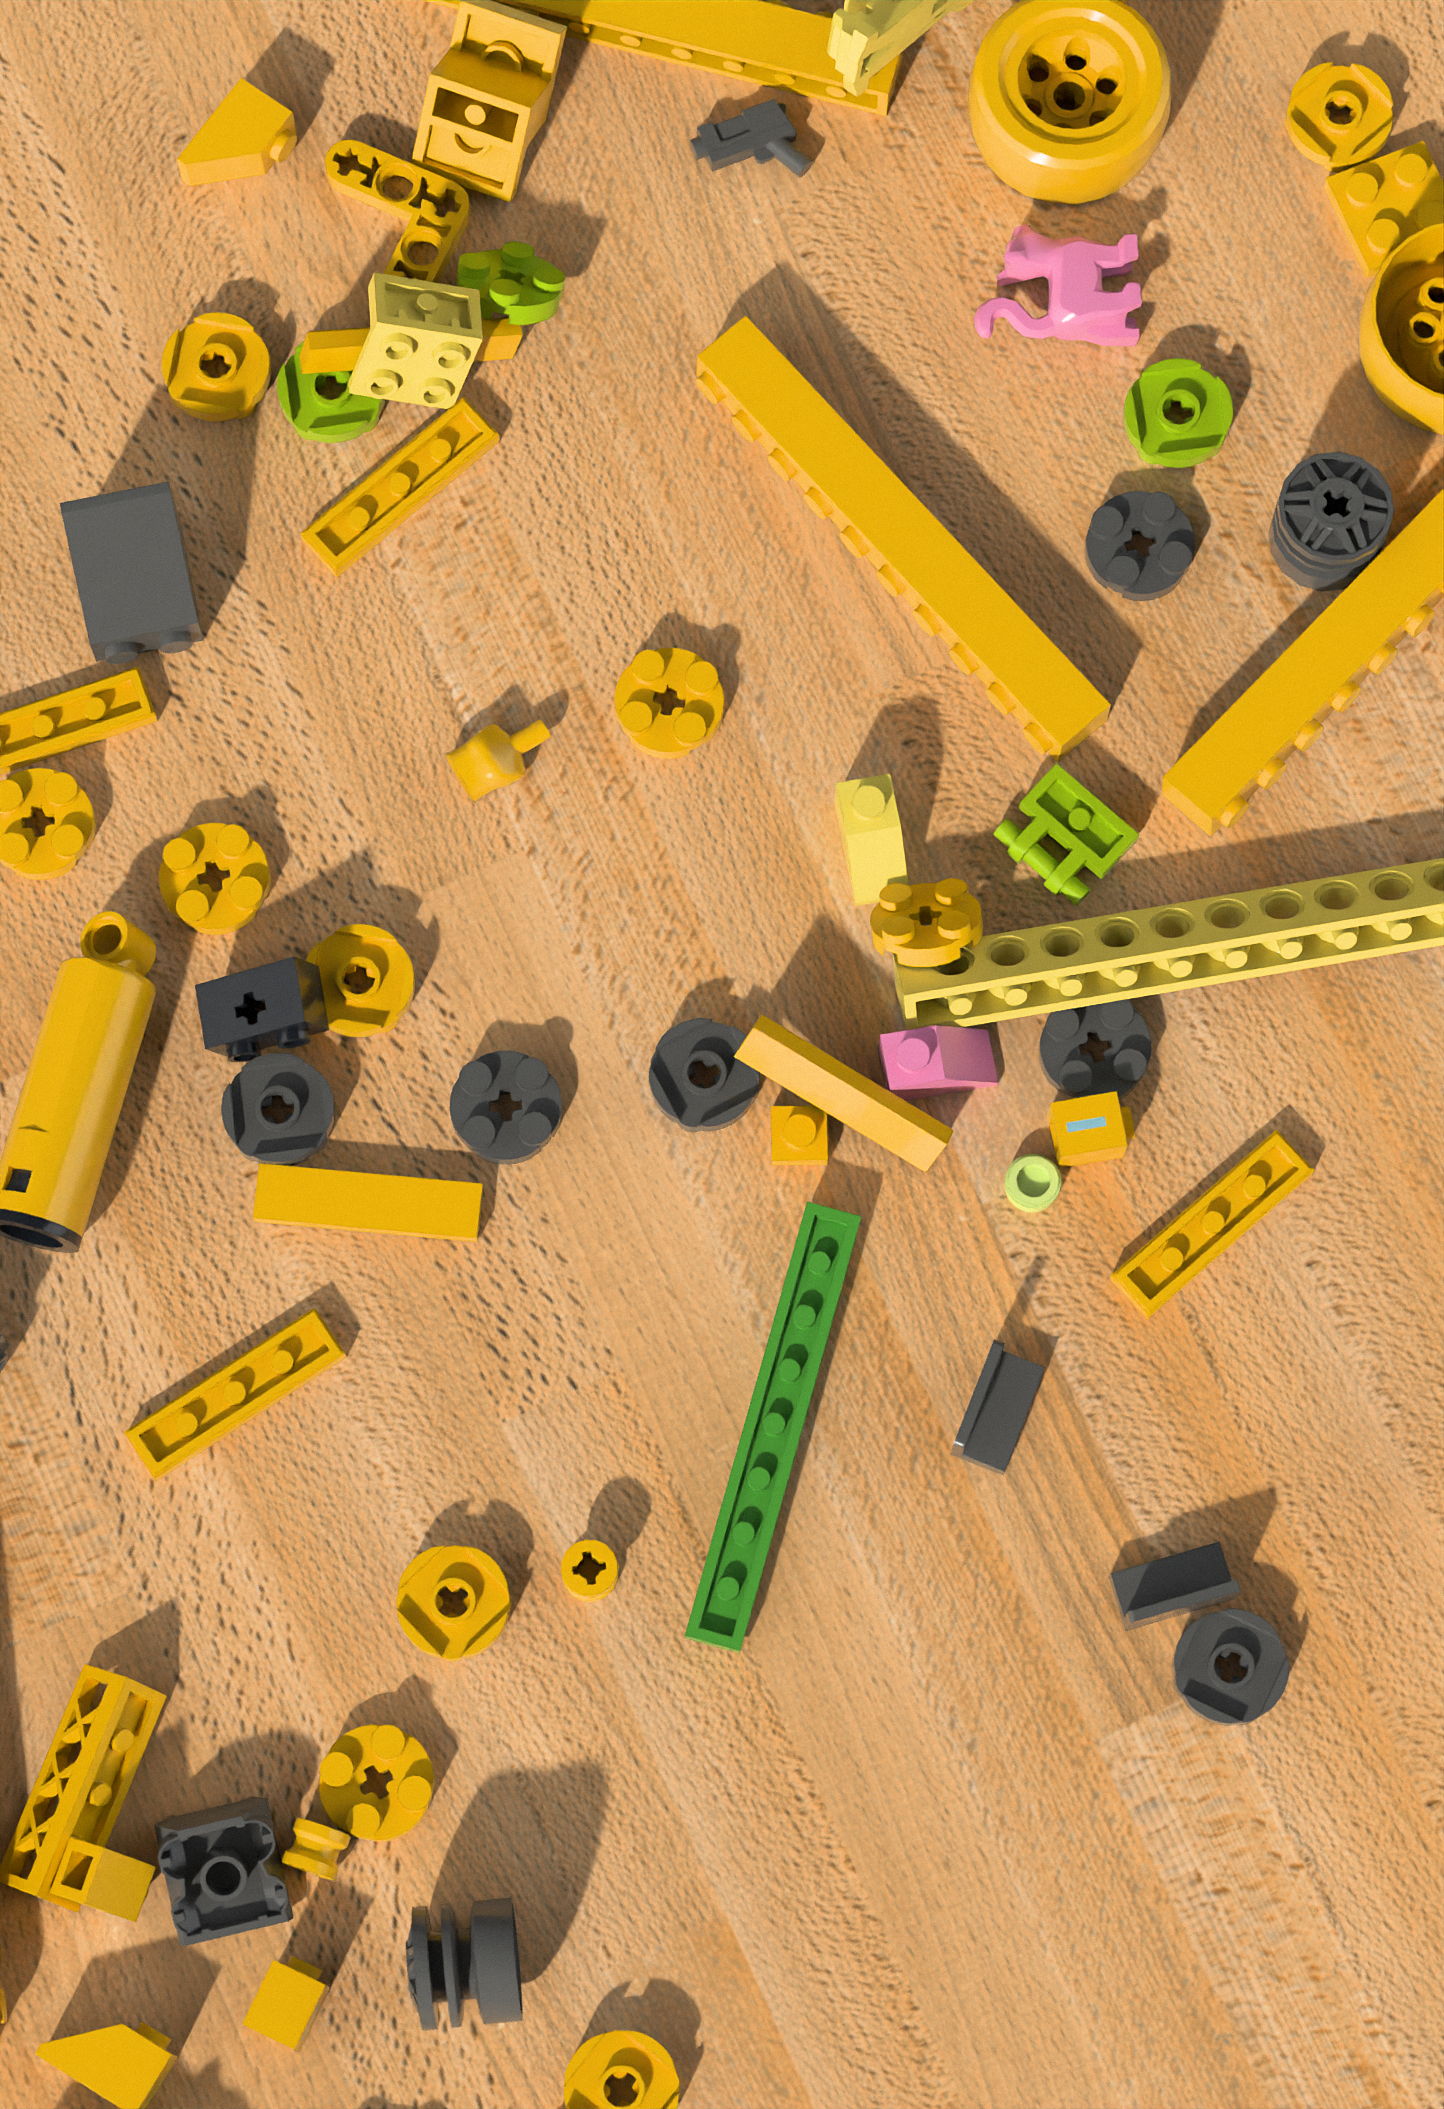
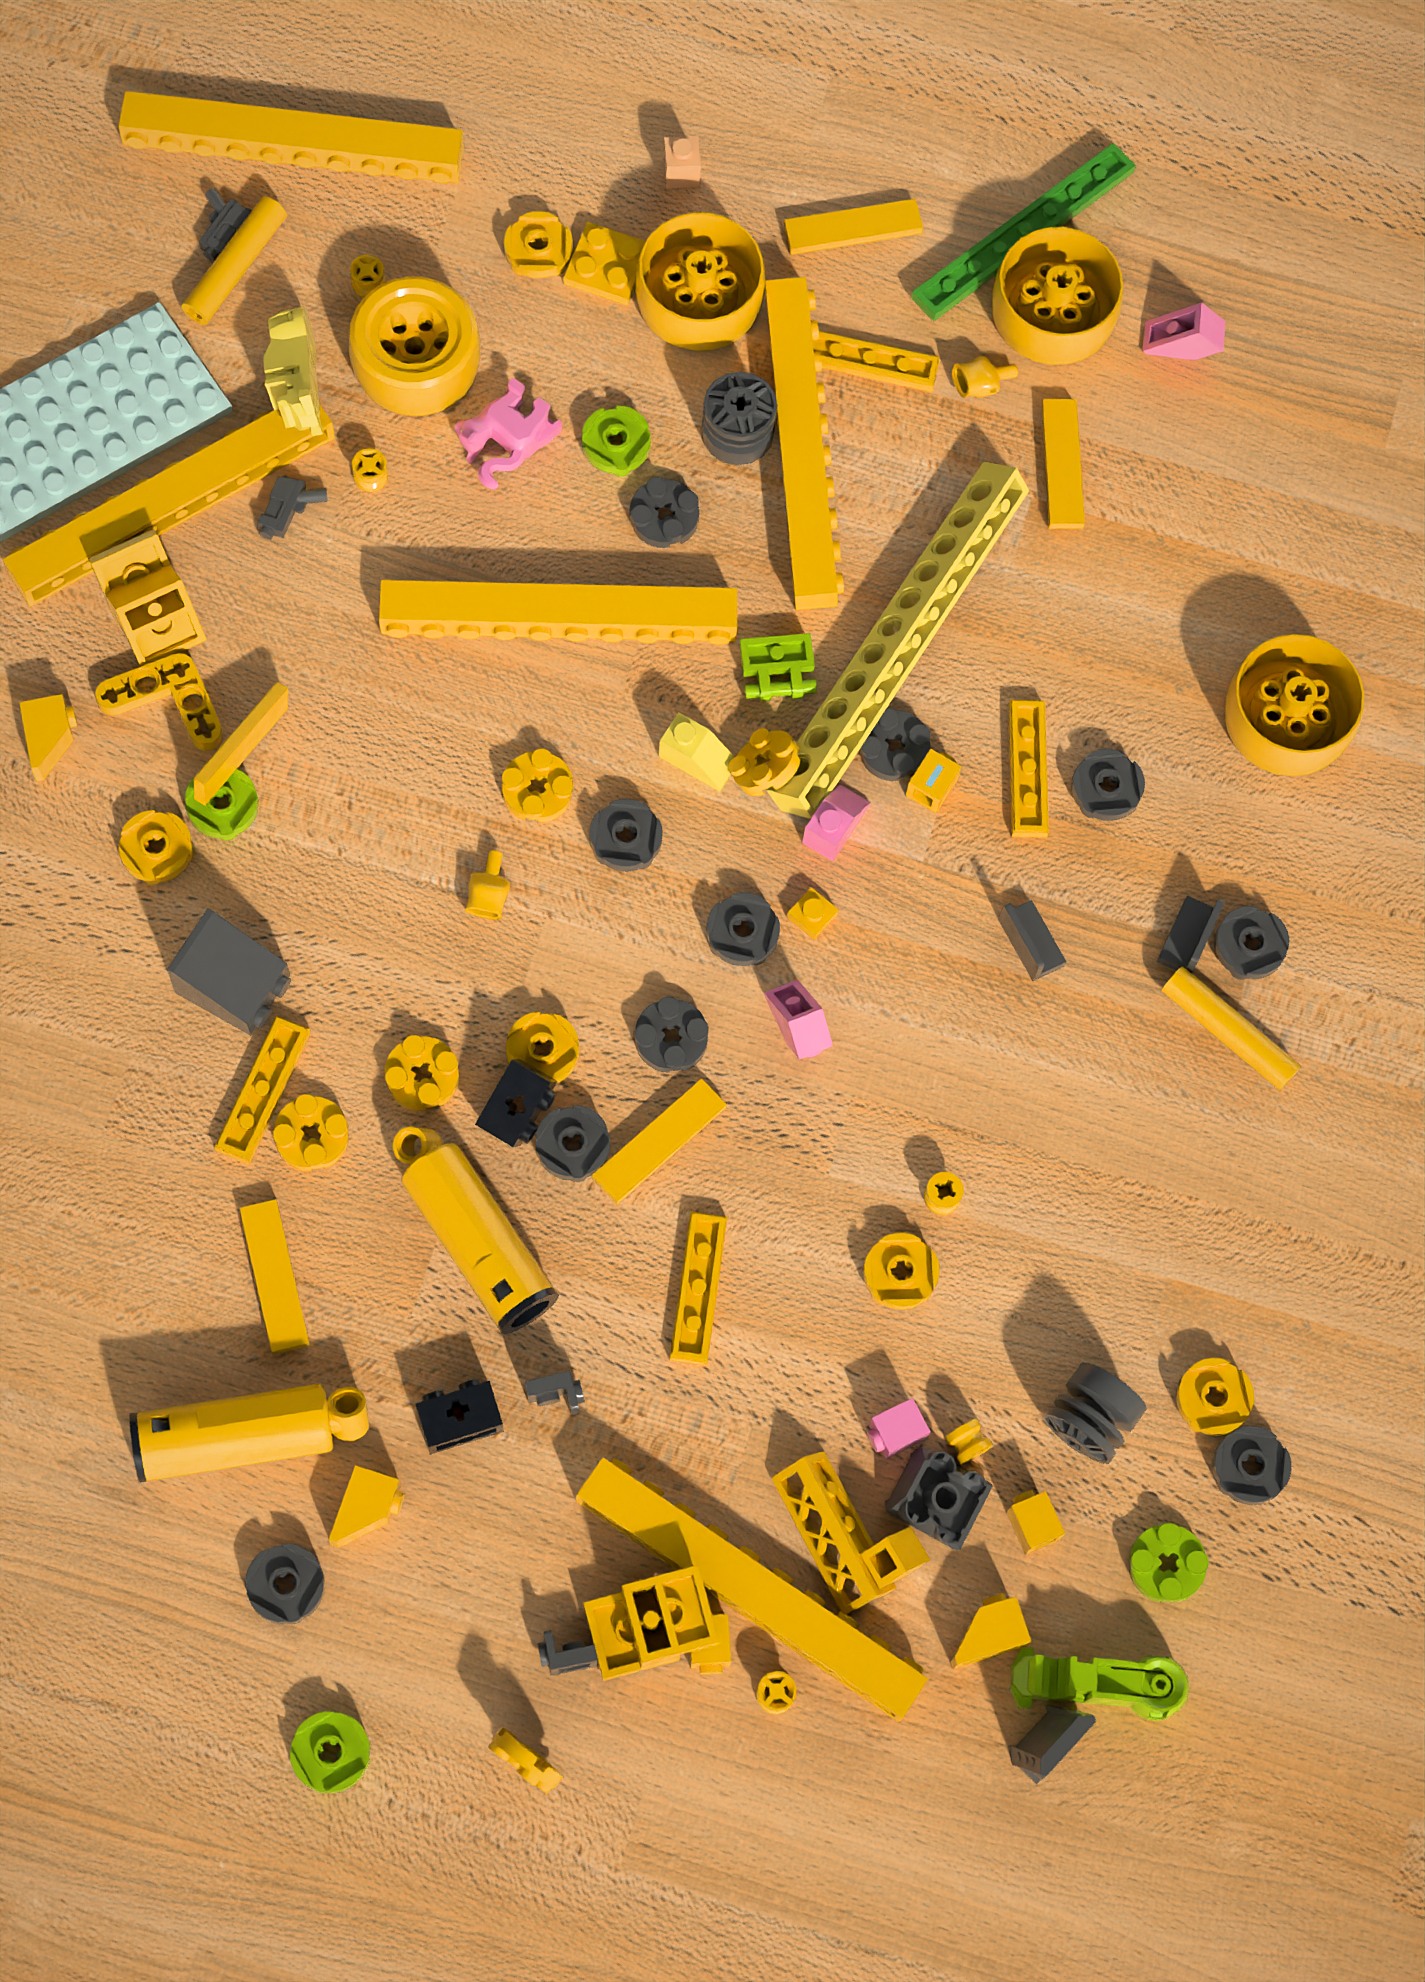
camera: 55 degrees left, 5 degrees down
(259, 1756) = (898, 1429): none -> bright pink brick
(344, 1773) = (940, 1397): yellow plate -> none
(400, 487) = (303, 816): yellow tile -> none
(417, 341) = (252, 734): light yellow bracket -> none
(513, 283) = (254, 672): lime plate -> none
(650, 1229) = (799, 1019): none -> slope
(704, 818) = (637, 852): none -> dark grey plate
(773, 1428) = (949, 1048): bright green plate -> none
(843, 1093) = (815, 871): yellow tile -> none
(879, 173) = (370, 461): none -> yellow wheel
(1032, 1183) = (934, 829): yellowish green tile -> none
(1097, 1732) = (1231, 1028): none -> yellow piece
(1270, 1301) = (1120, 770): none -> dark grey plate

